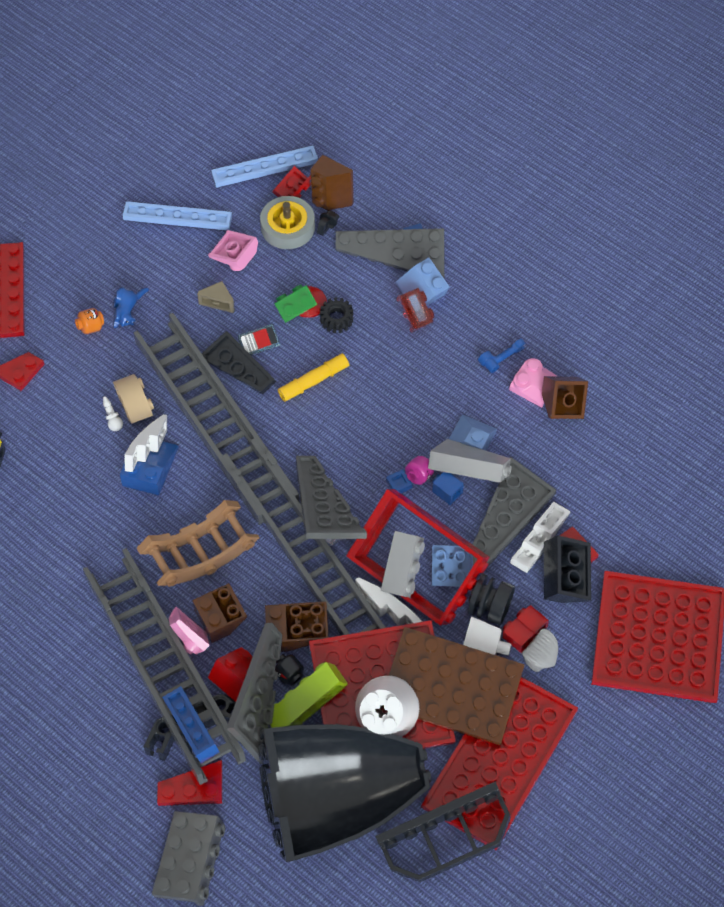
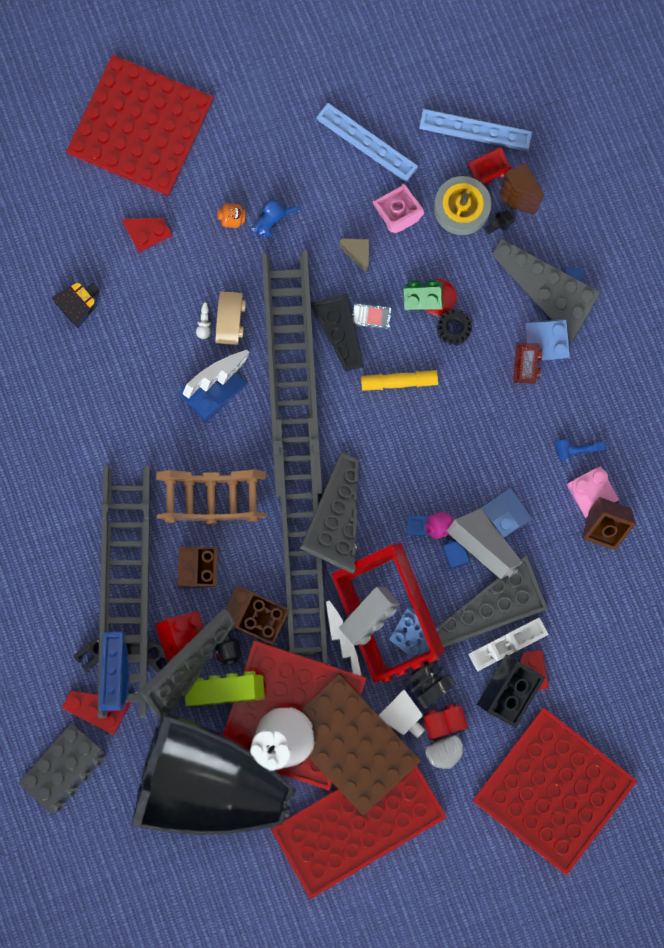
camera: 20 degrees right, 20 degrees up
(190, 633) = (161, 574): bright pink slope -> none
(431, 820) = (284, 854): black plate -> none

